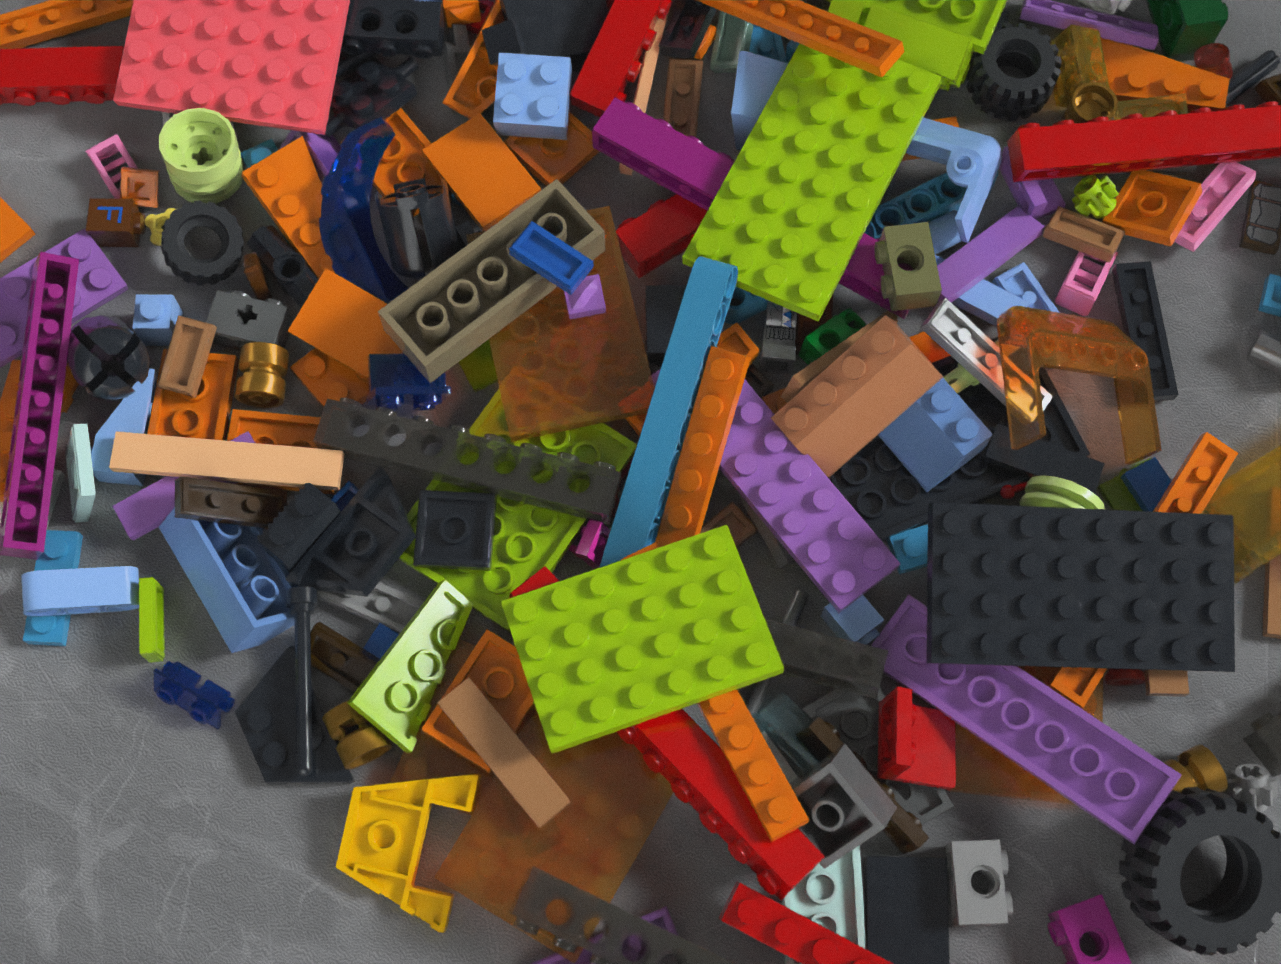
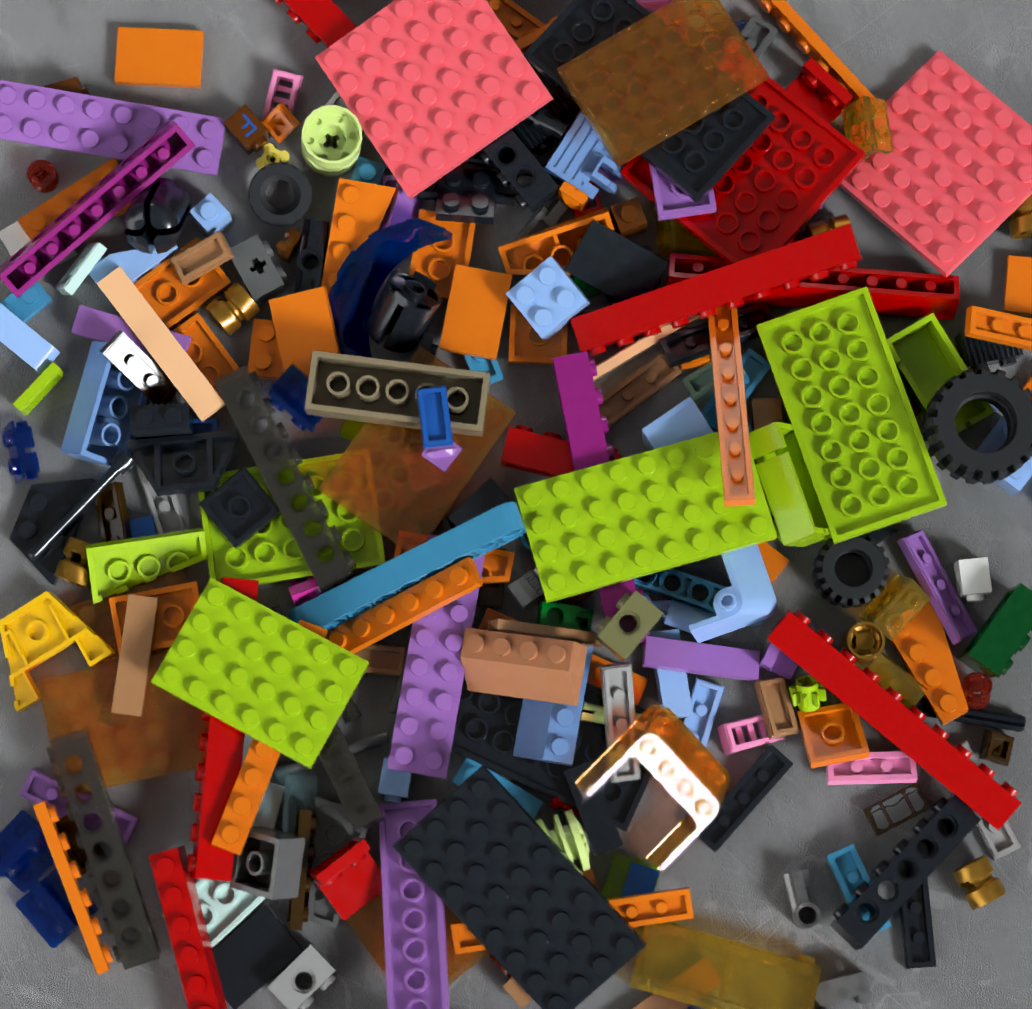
camera: 45 degrees right, 10 degrees up
(504, 39) = (566, 248): black tile -> none

